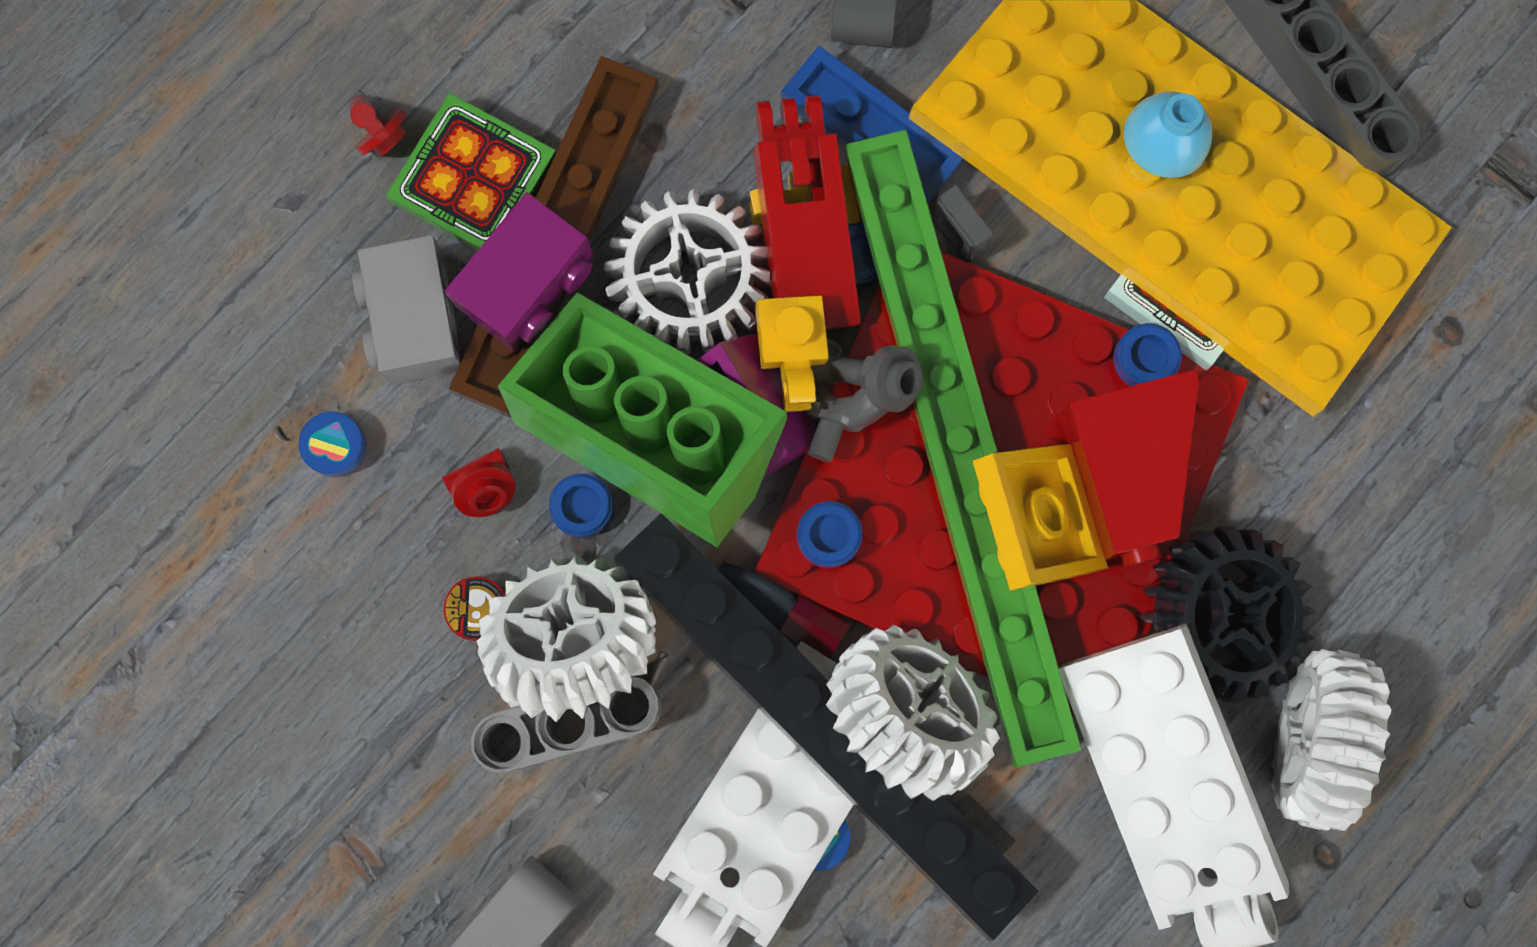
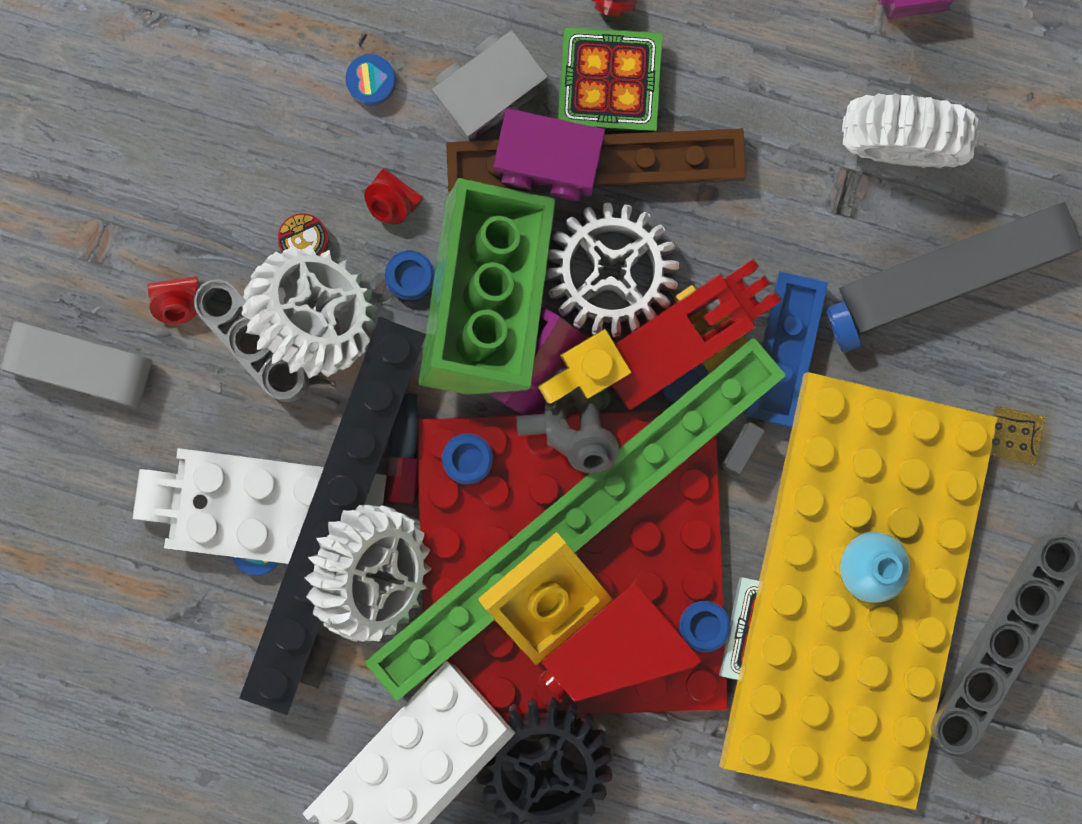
camera: 65 degrees right, 5 degrees up
(472, 796) = (173, 300): none -> red plate
(876, 53) = (843, 327): none -> blue tile

